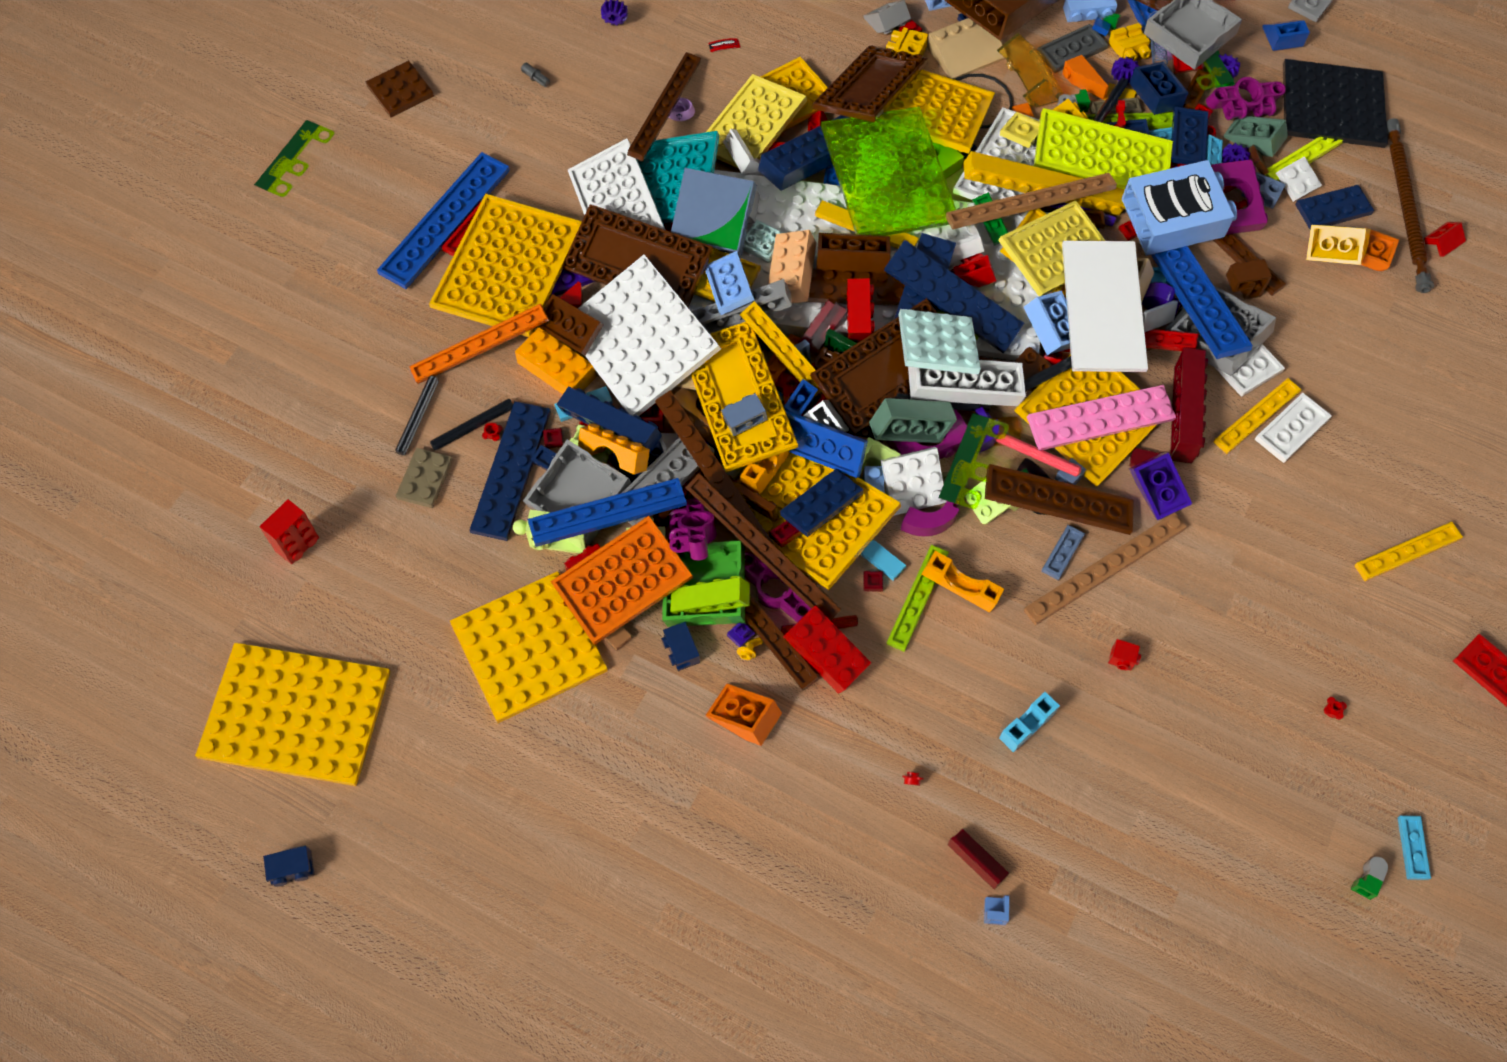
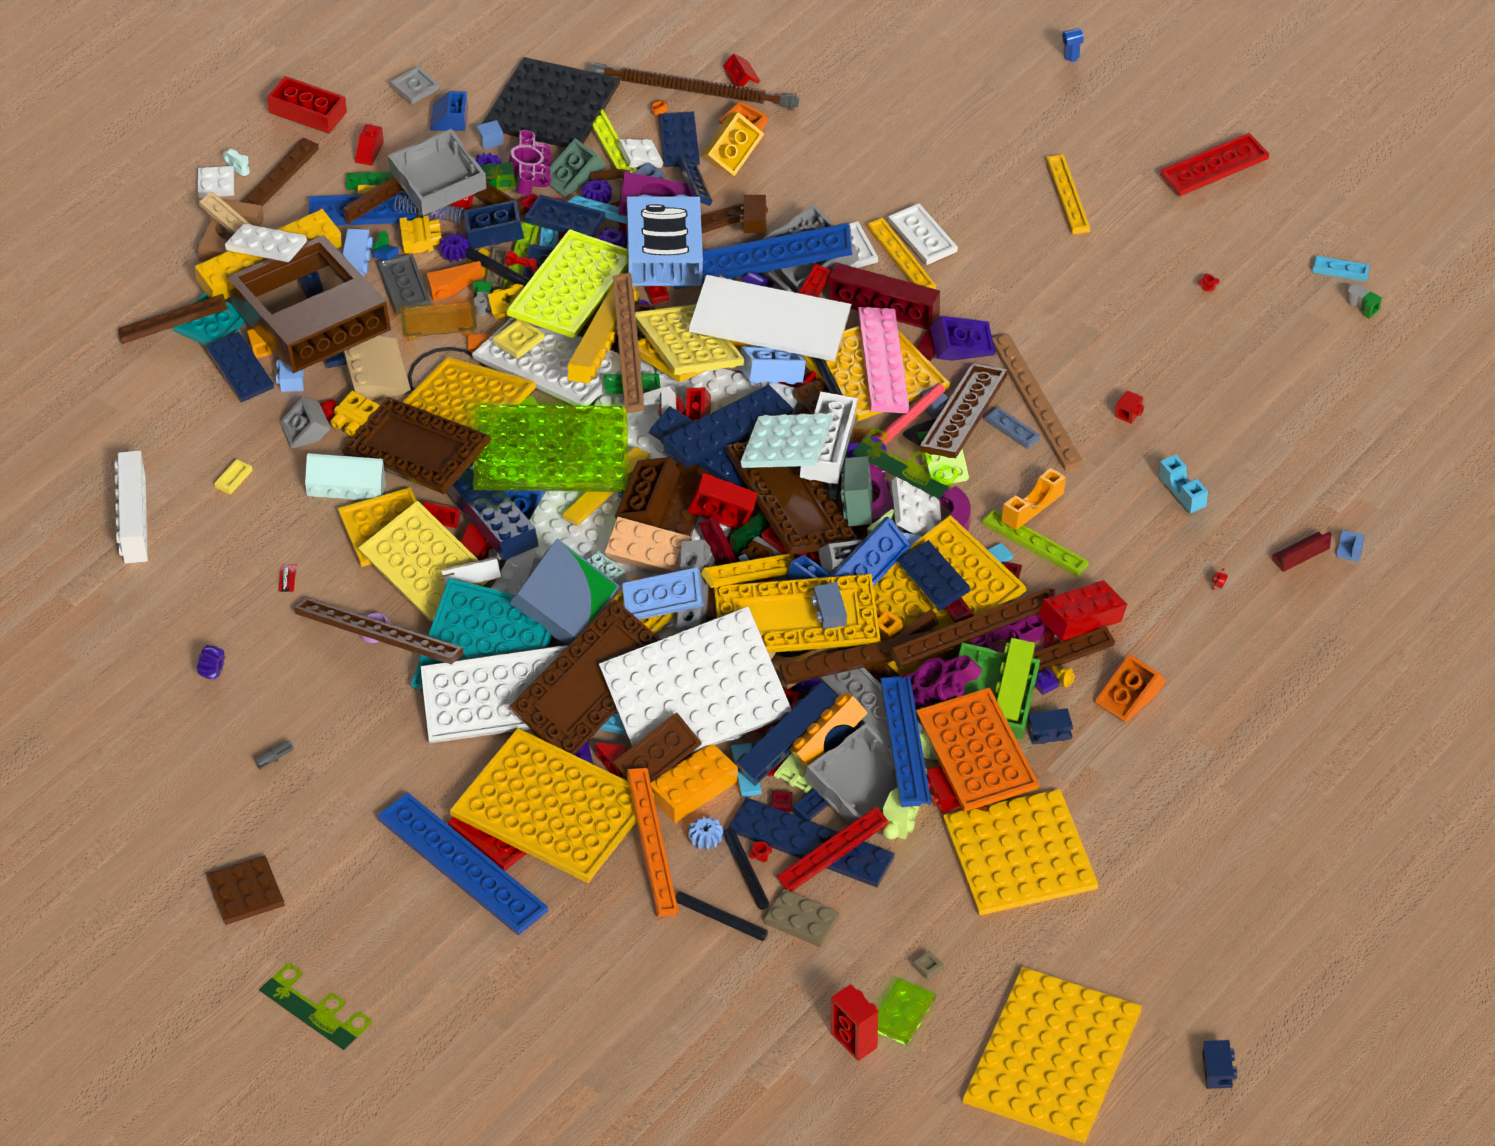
camera: 75 degrees left, 15 degrees down
(330, 577) = (904, 1011): none -> clear neon green plate
(380, 588) = (928, 965): none -> dark tan plate
(493, 484) = (832, 849): none -> red tile
(502, 384) = (705, 832): none -> light blue gear
(829, 50) = (344, 477): none -> light aqua slope
(1270, 220) = (694, 180): none -> dark blue tile
(1272, 66) = (491, 134): none -> medium blue panel
(1366, 183) = (659, 107): none -> orange tile

